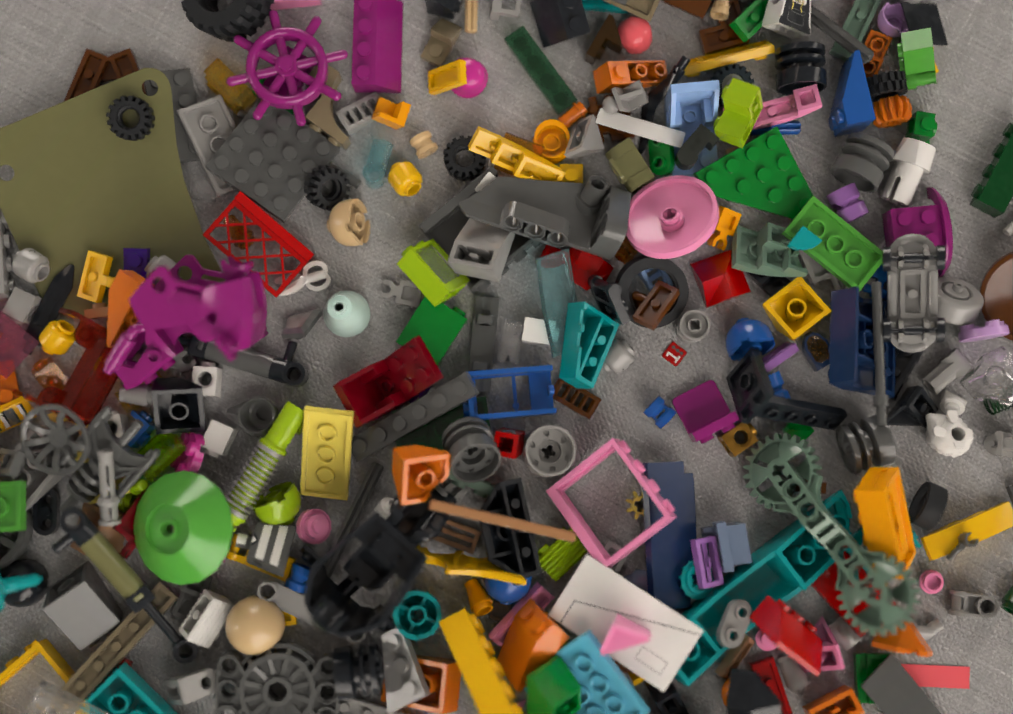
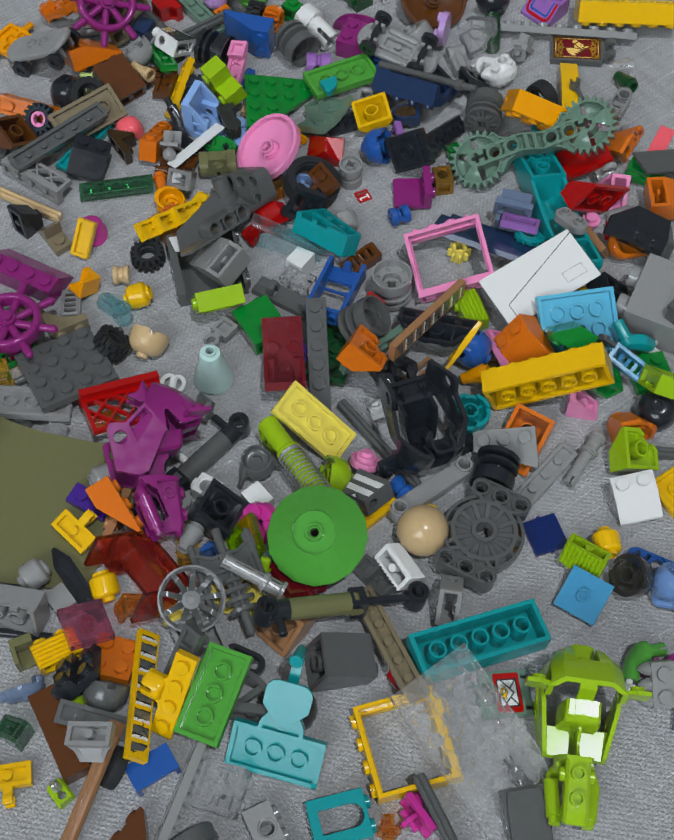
camera: 65 degrees left, 25 degrees down
(624, 634) = (546, 275): bright pink slope -> none

